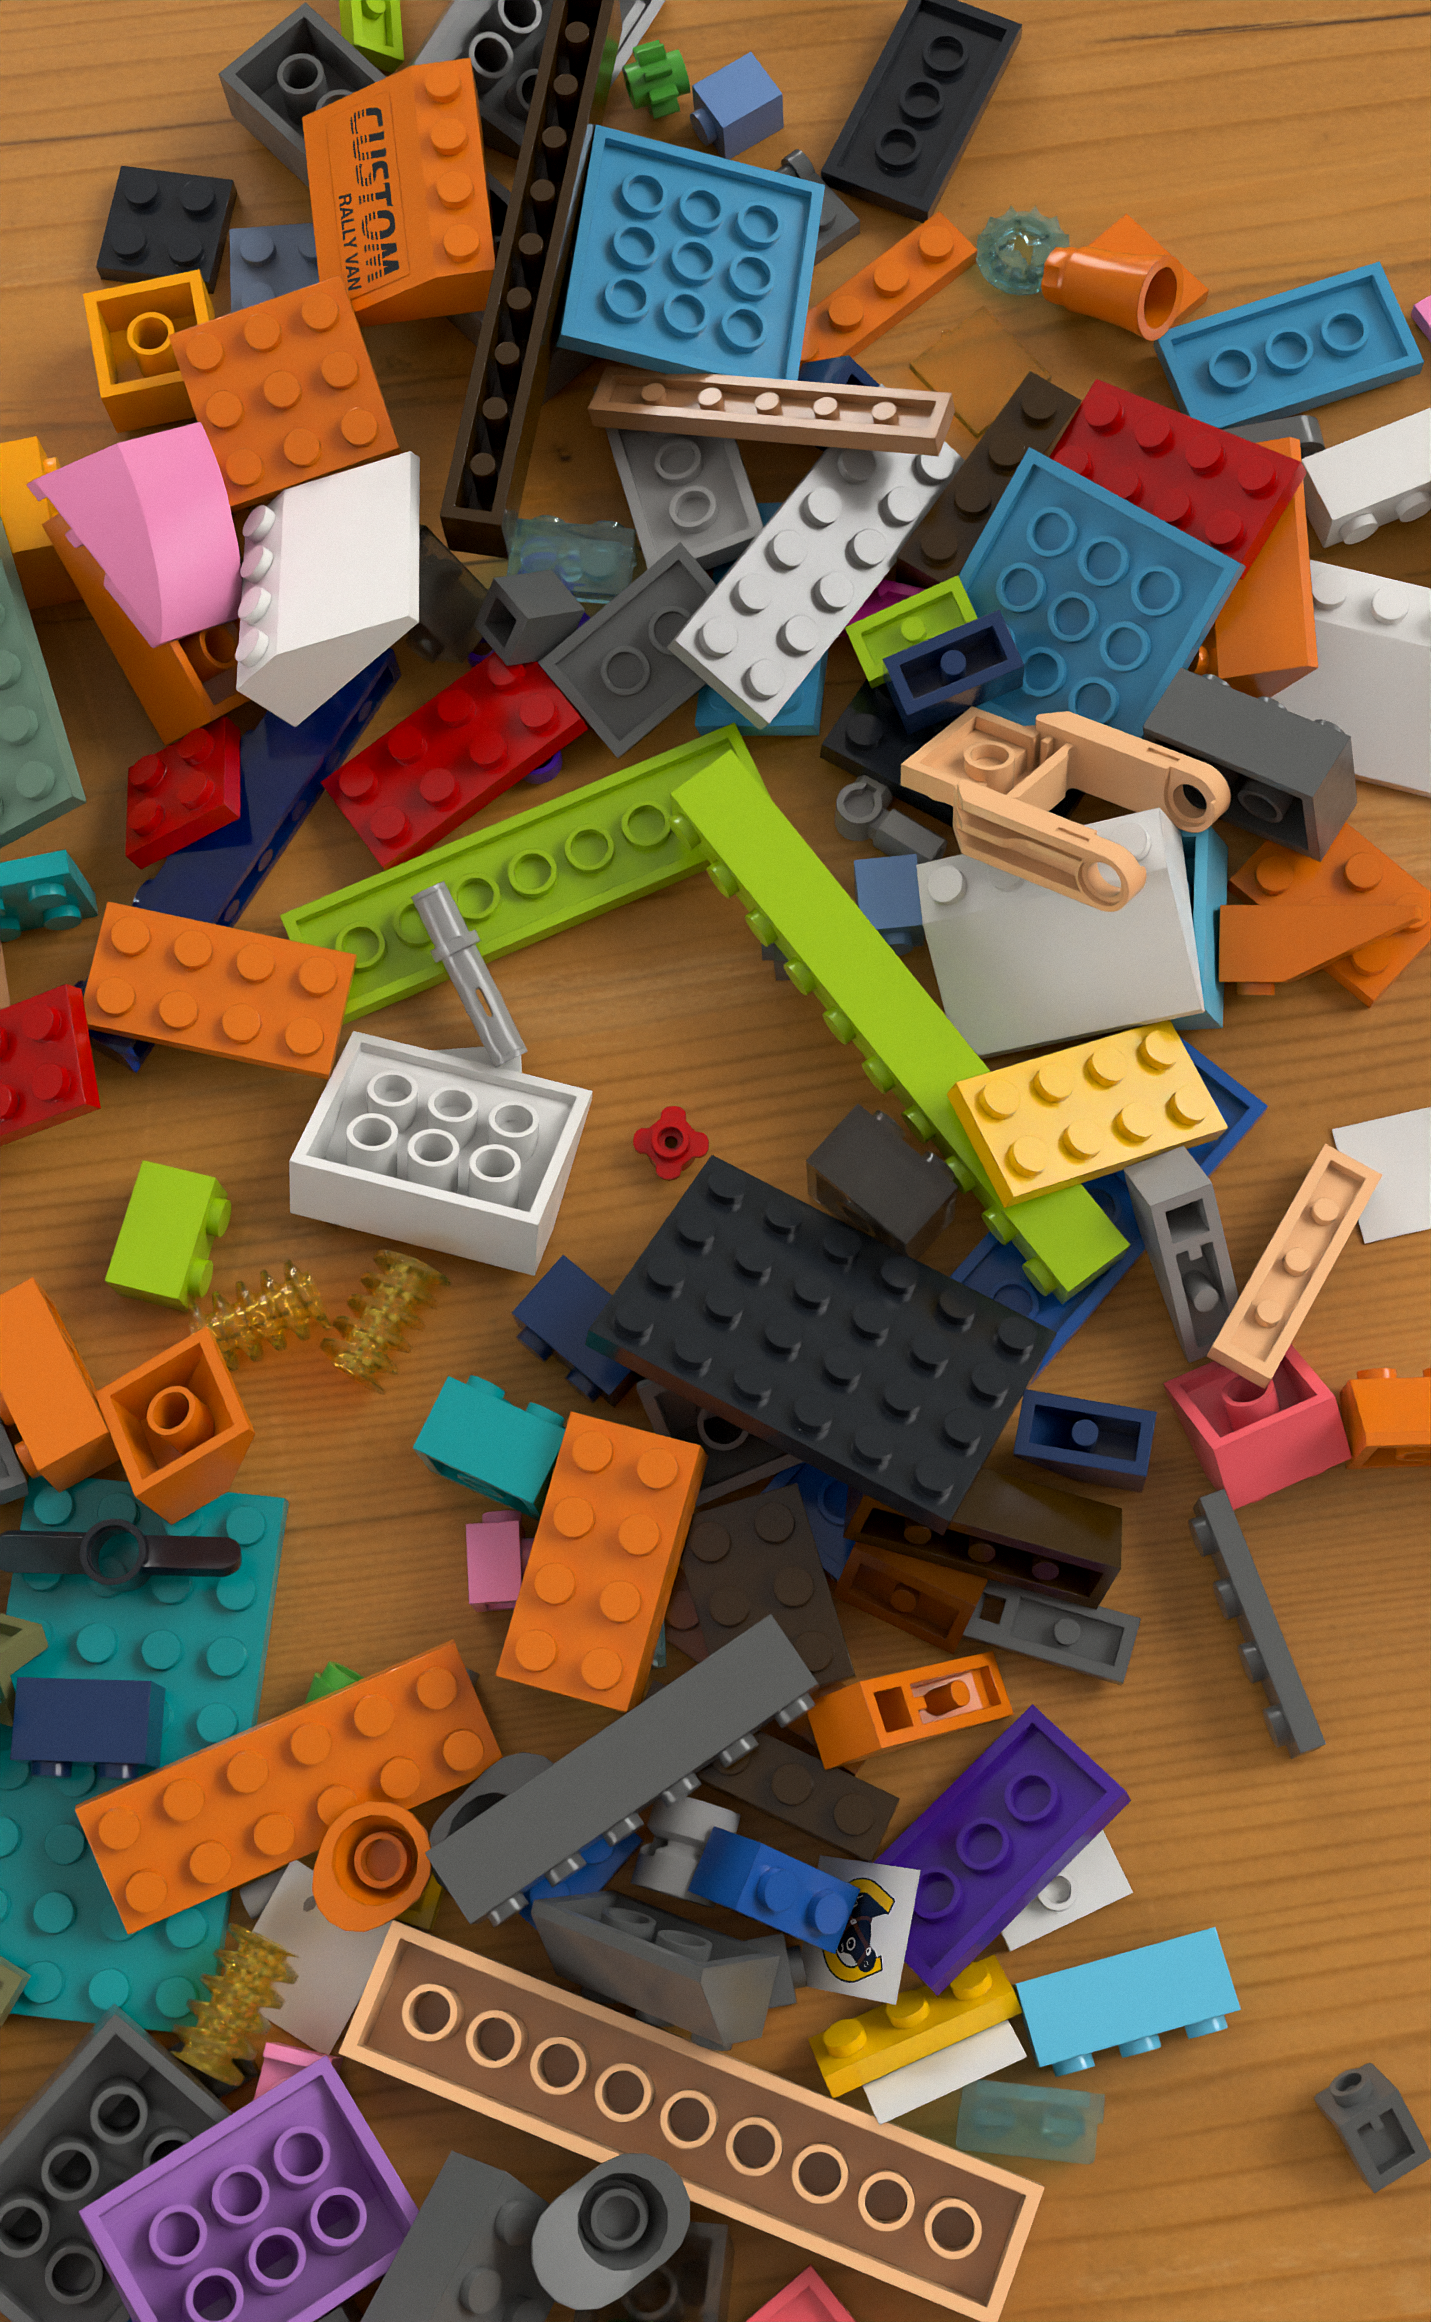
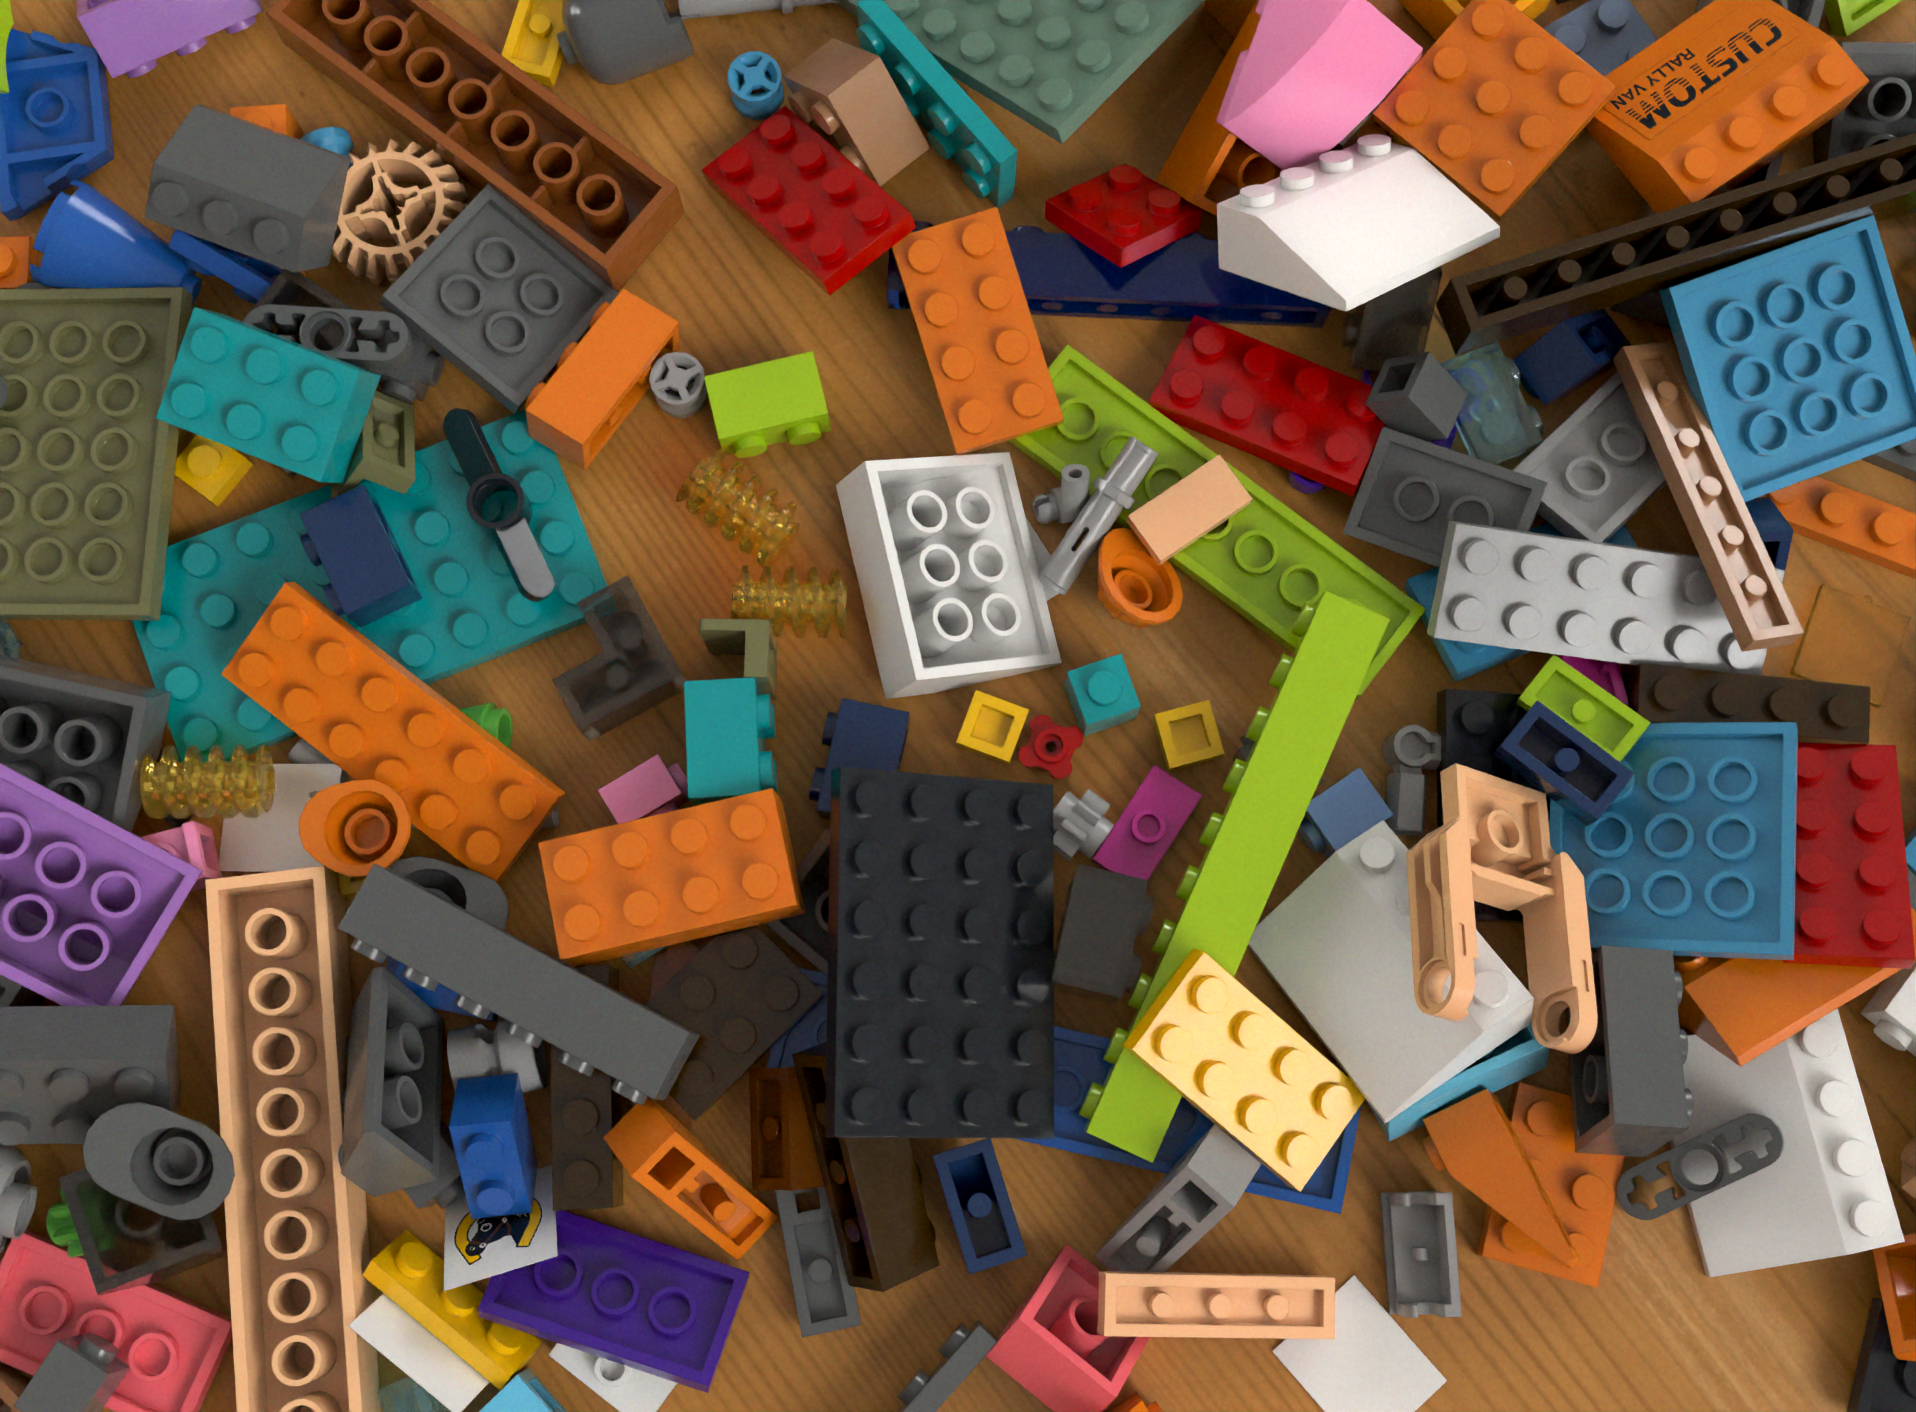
camera: 50 degrees right, 5 degrees up
(82, 1309) = (674, 373): none -> light grey wheel
(178, 1426) = (614, 493): orange slope -> none
(360, 1502) = (630, 672): none -> clear smoke brick
(400, 1370) = (748, 638): none -> olive panel
(436, 999) = (1064, 502): none -> light grey arm
(513, 886) = (1189, 509): none -> light nougat tile
(554, 974) = (1133, 583): none -> orange piece
(566, 464) = (1570, 355): none -> dark blue slope
(620, 1188) = (992, 727): none -> yellow plate
(648, 1065) = (1101, 695): none -> teal brick
(732, 1007) = (1188, 735): none -> yellow plate
(765, 1150) = (1080, 824): none -> light grey gear
(796, 1090) = (1147, 825): none -> dark pink plate
(1342, 1053) = (1420, 1253): none -> light grey hinge
(1377, 712) = (1666, 1199): none -> dark grey beam

